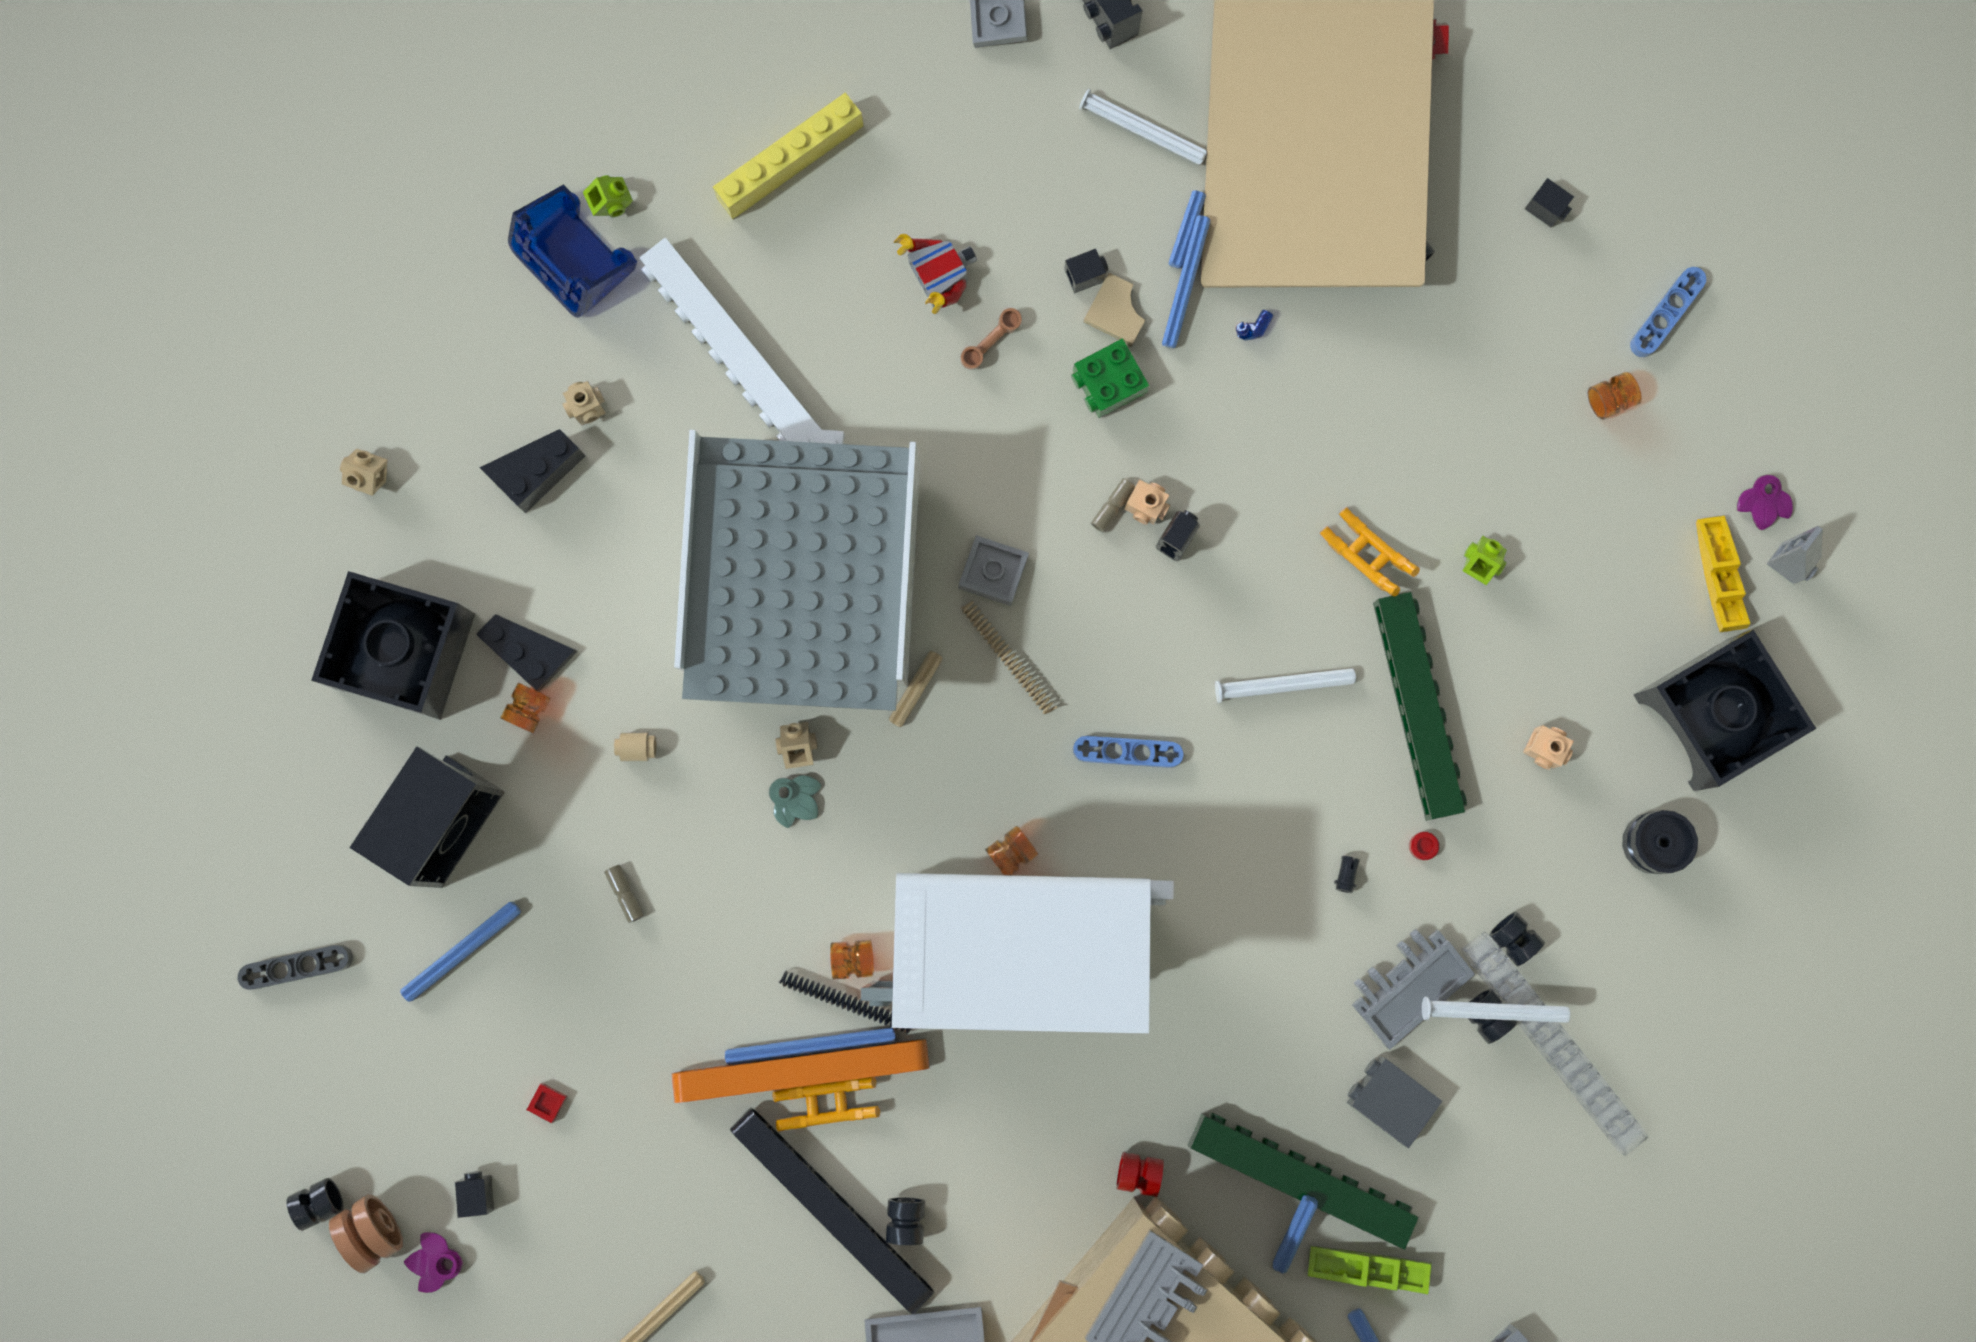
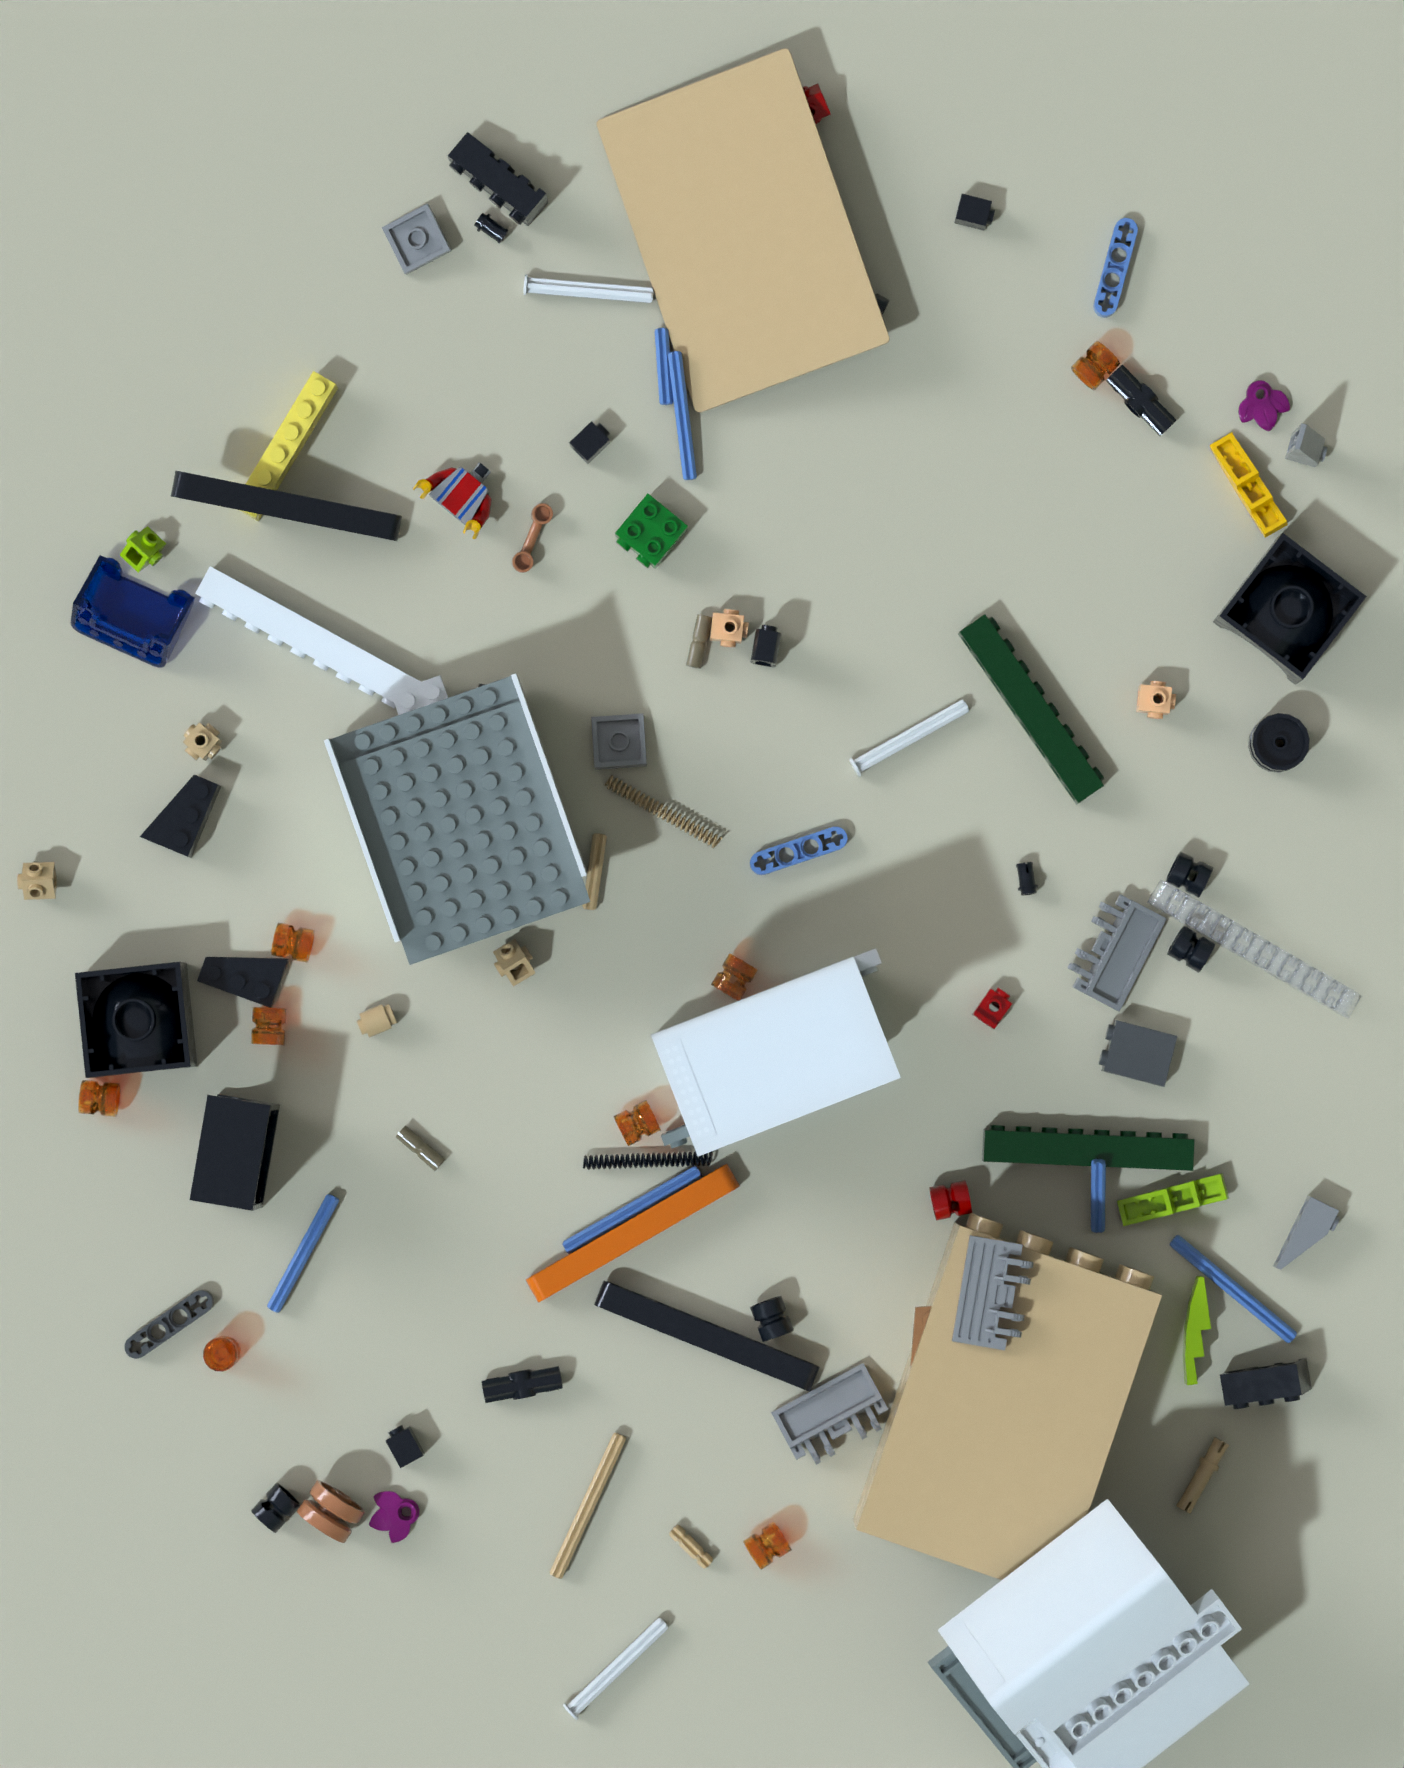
camera: 20 degrees left, 5 degrees up
(329, 712) = (99, 1098): none -> clear orange wheel
(331, 1020) = (221, 1353): none -> clear orange wheel
(546, 1103) = (431, 1347): red tile -> none
(589, 637) = (292, 942): none -> clear orange wheel
(621, 1181) = (522, 1384): none -> black piece
(761, 205) = (286, 505): none -> black beam
(798, 802) = (534, 1010): sand green plate -> none
(814, 1117) = (660, 1266): light orange piece -> none
(1072, 31) = (490, 227): none -> black pin
(1113, 311) = (629, 467): tan tile -> none
(1252, 997) = (983, 1011): none -> red brick
(1254, 330) = (759, 433): clear blue arm -> none
(1367, 536) = (930, 578): light orange piece -> none
(1424, 846) = (1082, 827): red tile -> none
(1484, 559) = (1038, 559): lime brick -> none
(1494, 1011) = (1190, 944): white axle -> none
(1646, 448) = (1141, 400): none -> black piece

